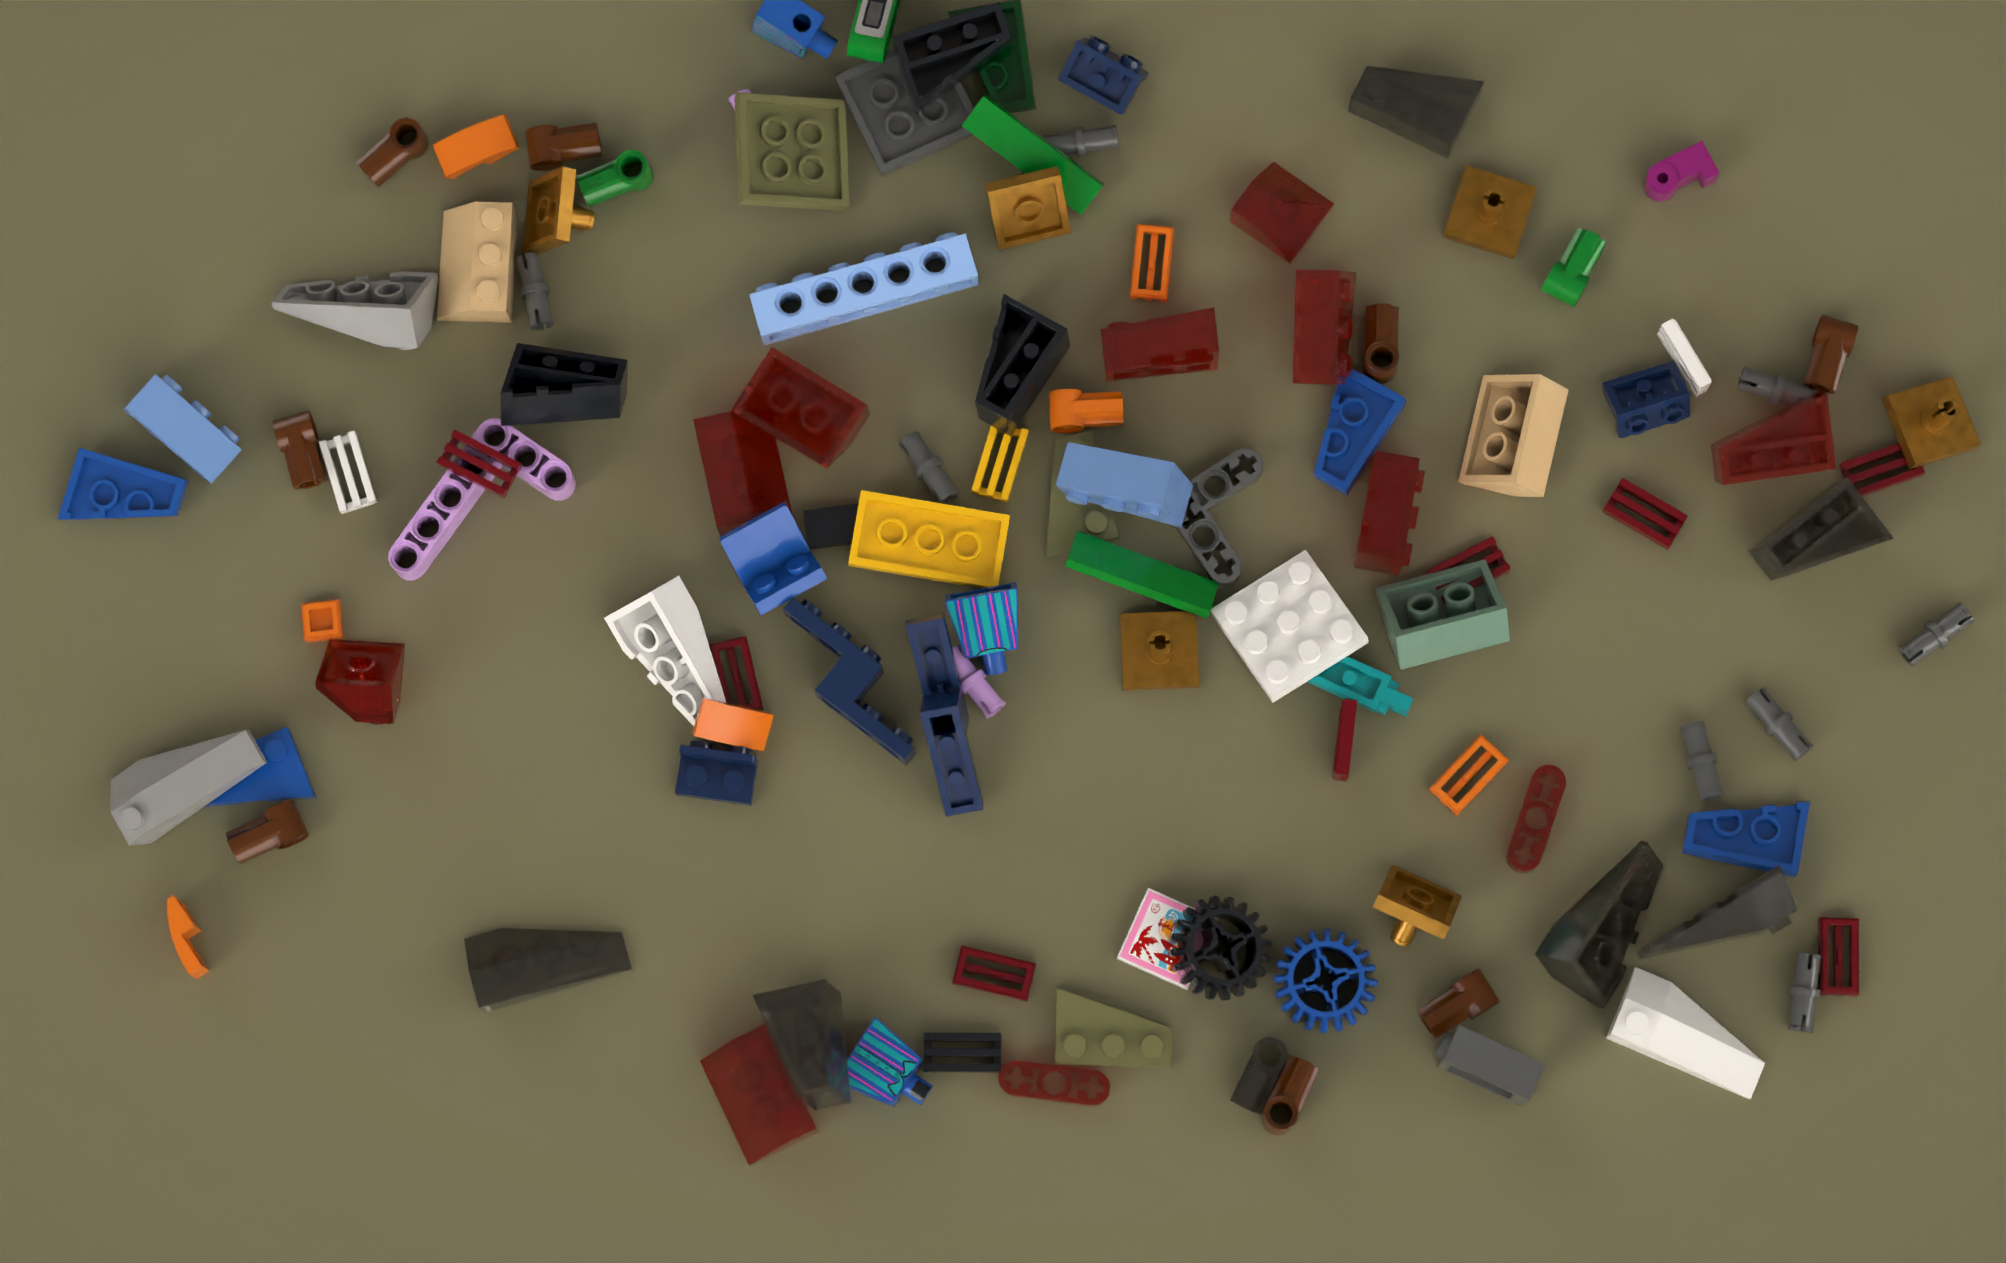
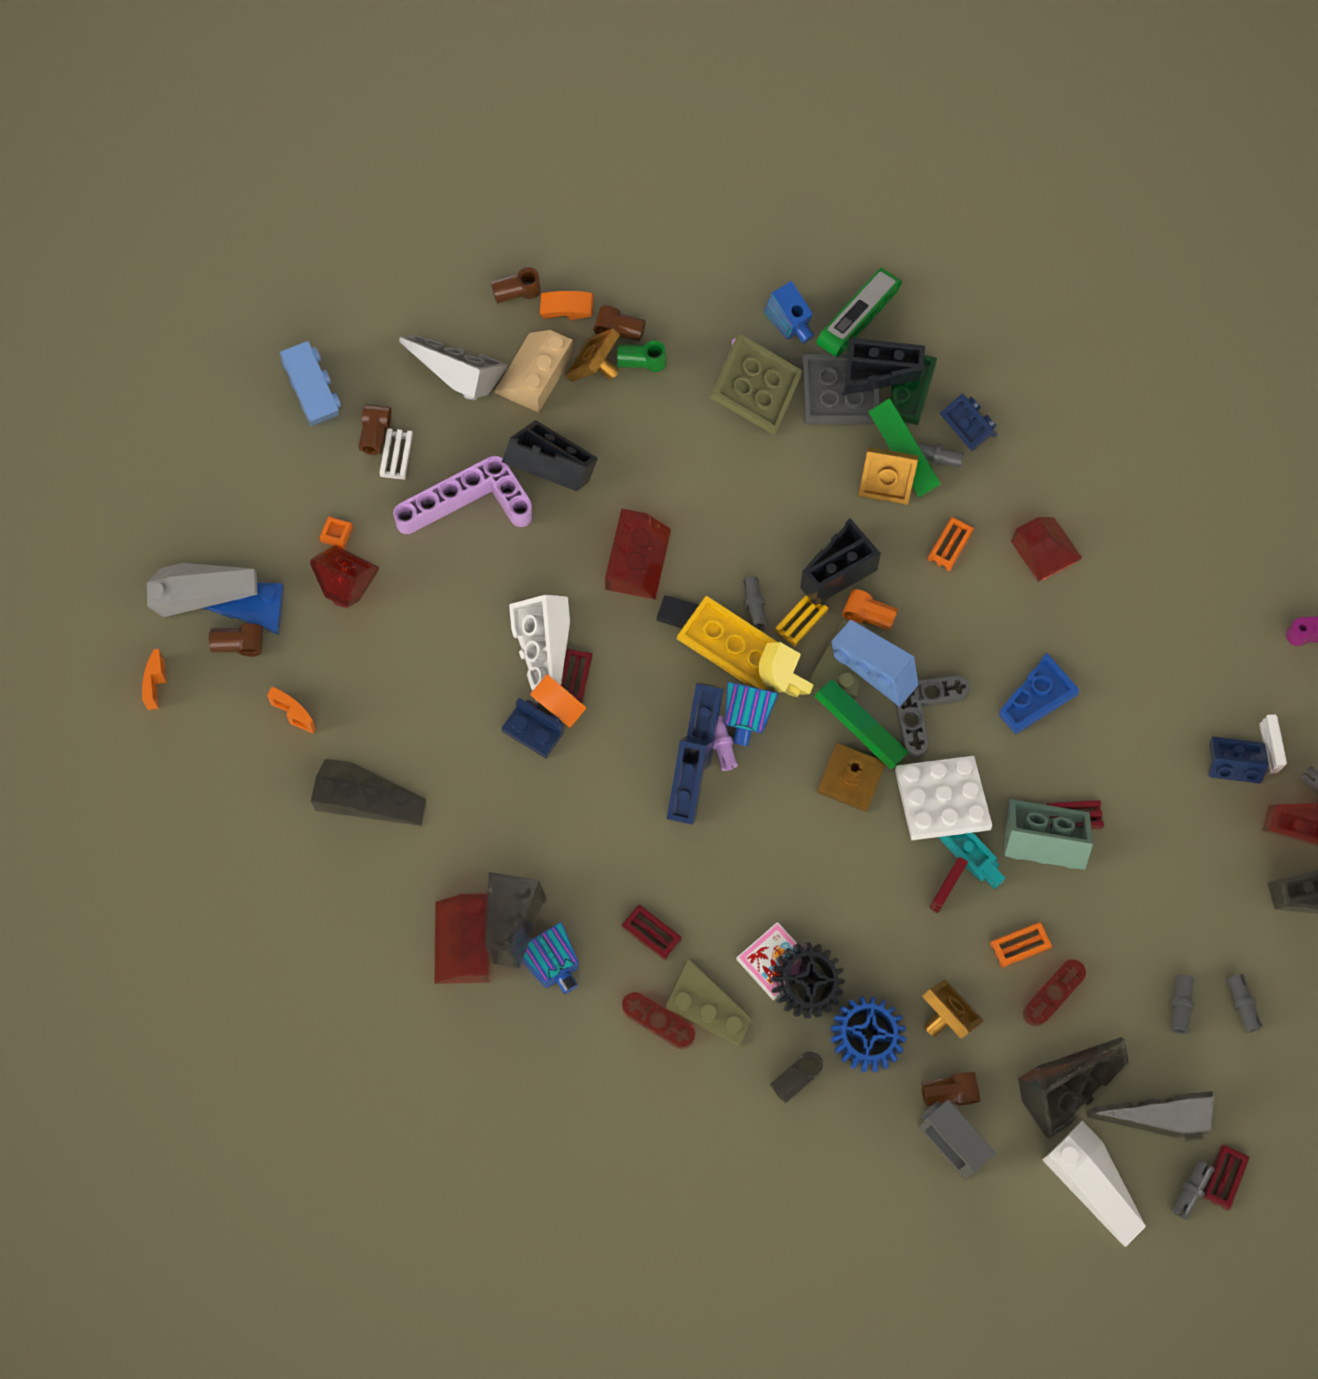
camera: 15 degrees right, 10 degrees down
(118, 489) = (254, 404): blue wing -> none
(398, 897) = (295, 712): none -> orange slope
(451, 449) = (465, 462): dark red tile -> none
(534, 291) = (561, 399): dark grey pin -> none
(772, 558) = (630, 611): blue bracket -> none
(801, 409) = (692, 531): clear red slope -> none
(850, 679) = (645, 708): dark blue bracket -> none
(851, 305) = (752, 488): light blue brick -> none
(962, 1052) = (611, 963): black tile -> none
(1001, 552) = (777, 670): none -> light yellow brick
(1161, 346) = (936, 592): clear red wedge -> none
(1290, 1092) = (812, 1098): reddish brown piece -> none
(1323, 326) = (1045, 622): clear red wedge -> none
(1381, 340) = (1078, 650): reddish brown piece -> none
(1389, 513) = (1038, 756): clear red wedge -> none
(1416, 105) = (1160, 520): clear smoke wedge -> none
(1490, 212) = (1180, 604): pearl gold tile -> none
(1513, 434) = (1141, 743): tan slope -> none
(1571, 273) = (1217, 662): green piece -> none
(1652, 501) = (1214, 824): dark red tile -> none
(1749, 837) = (1195, 1068): blue wing -> none

